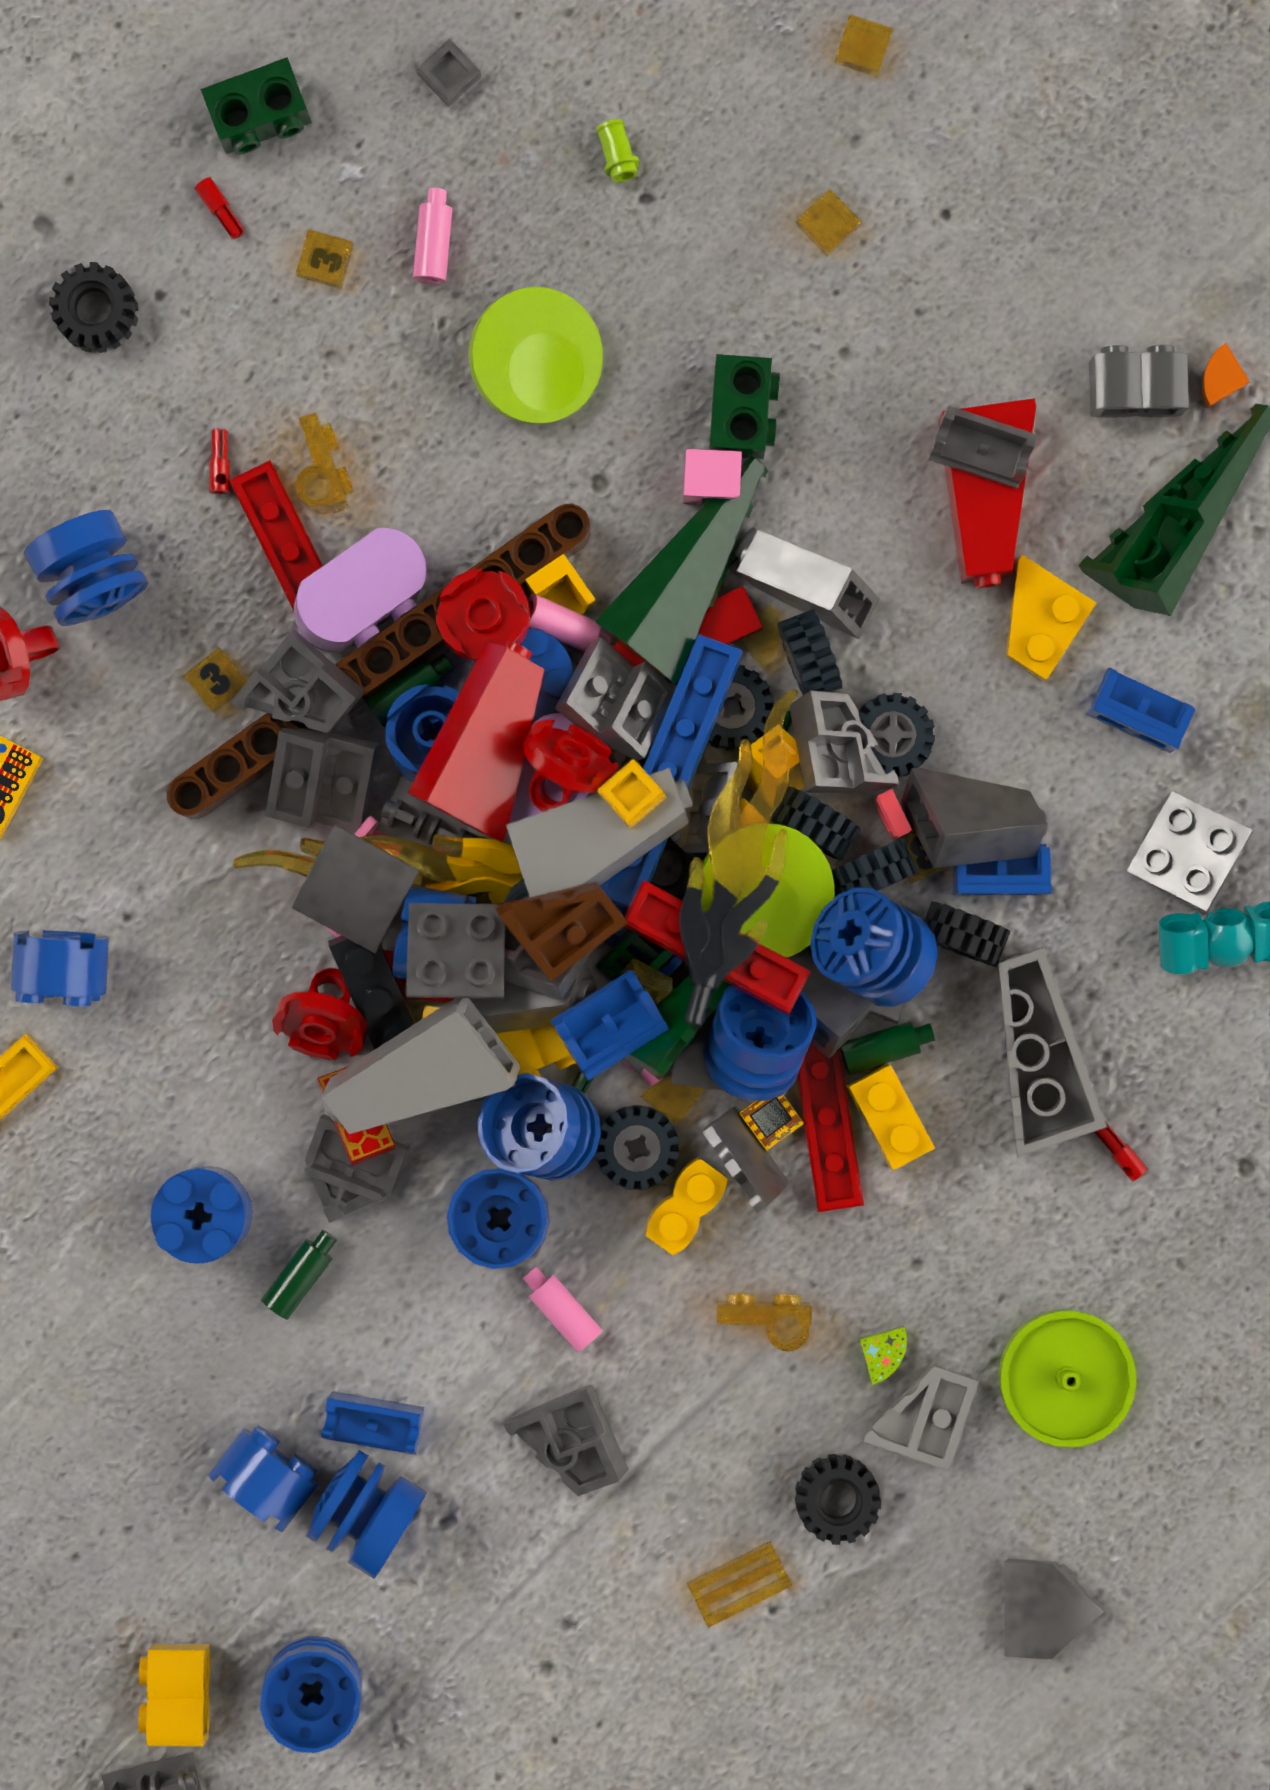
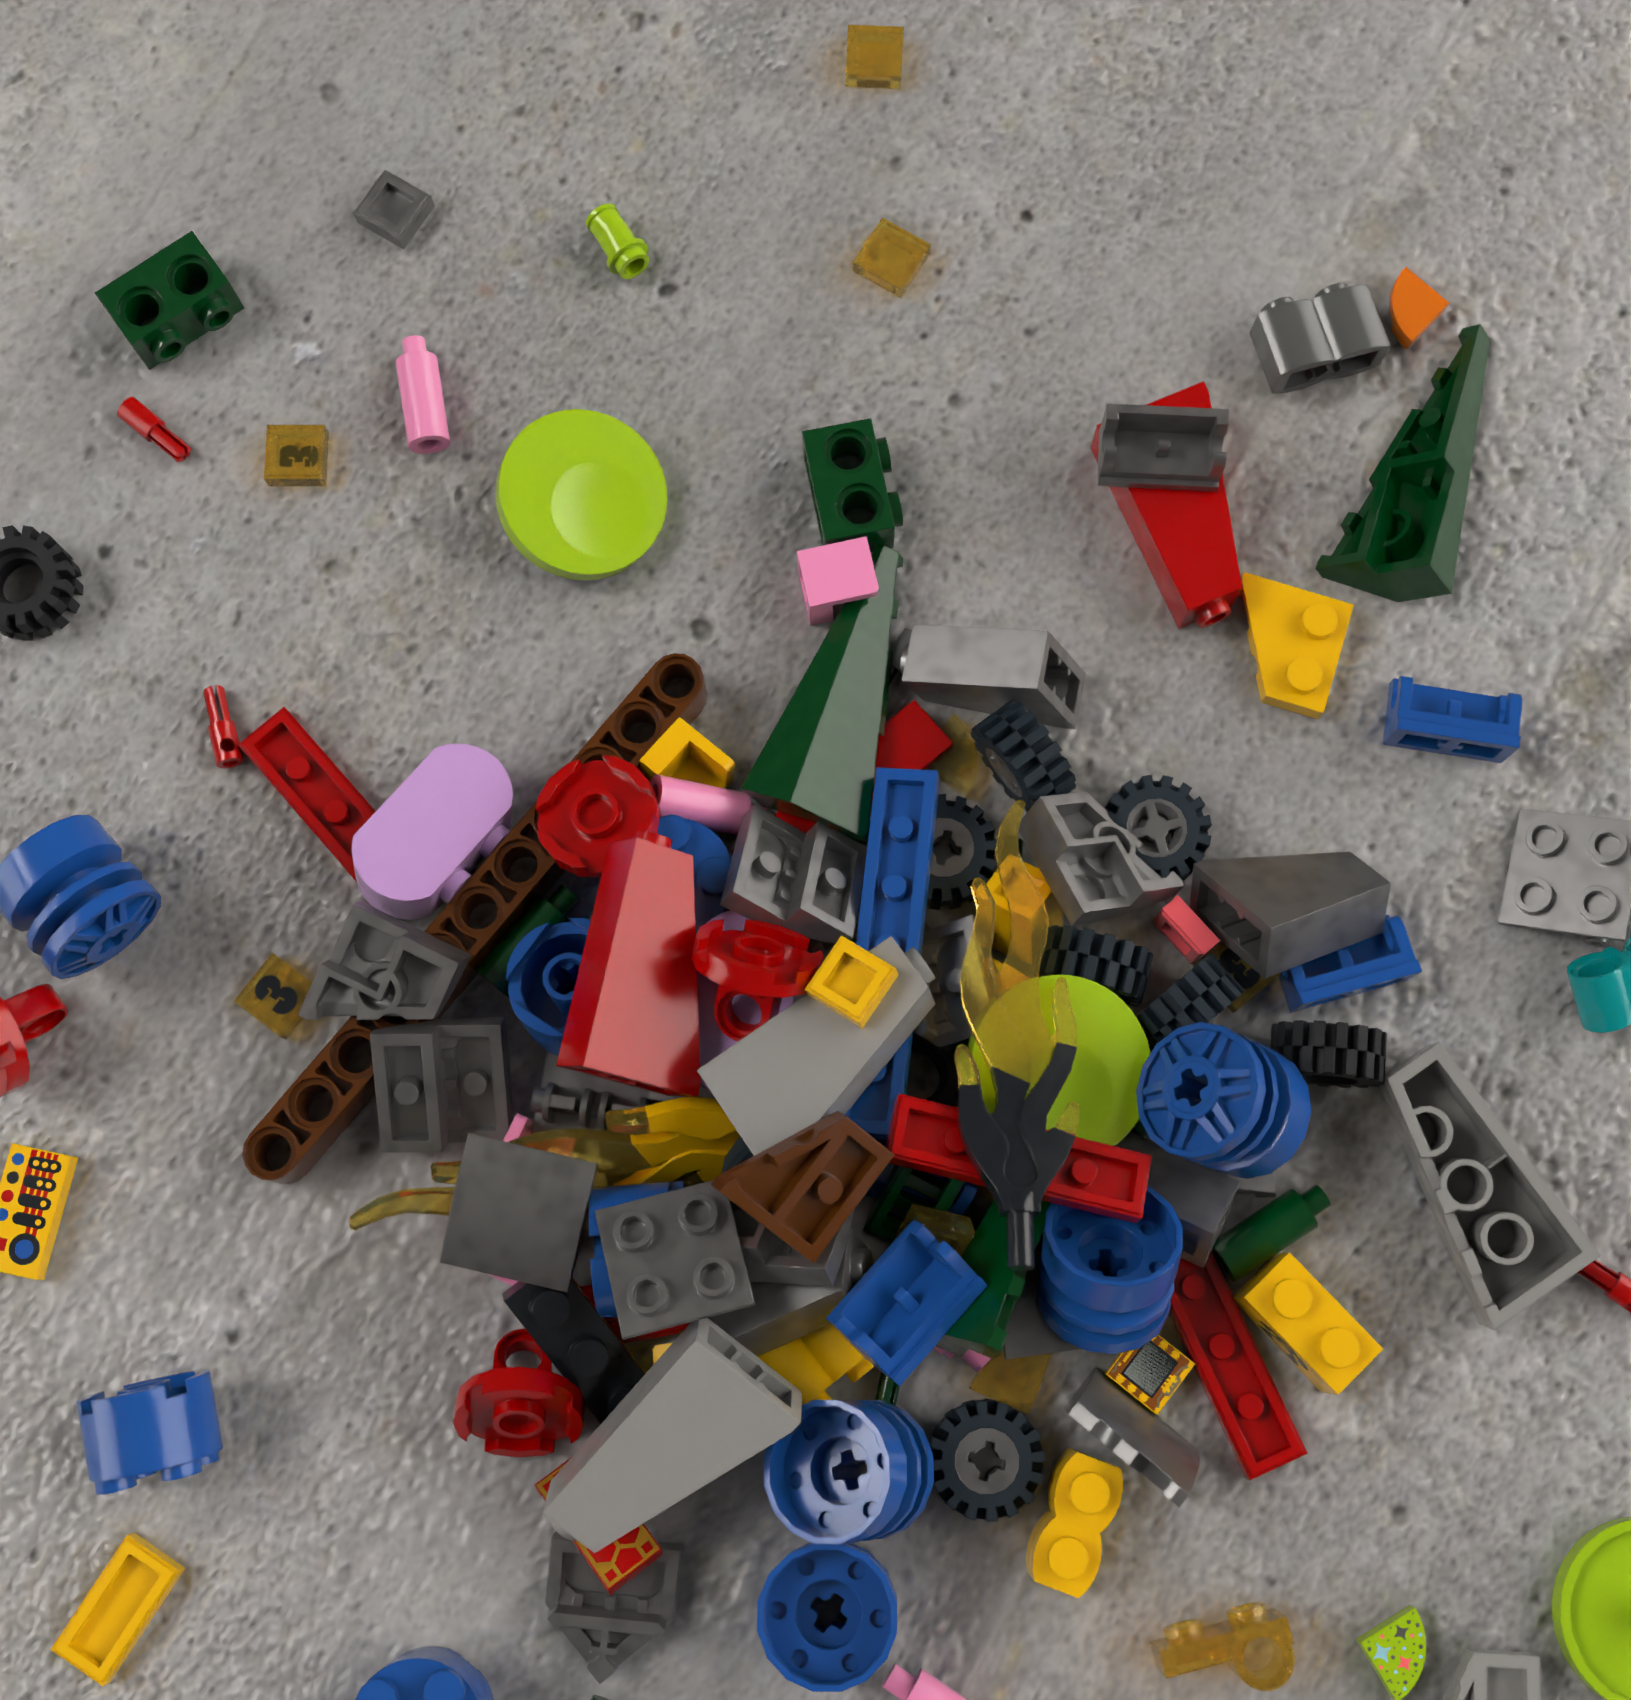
camera: 15 degrees left, 10 degrees down
(321, 443) = (352, 698): clear yellow plate -> none

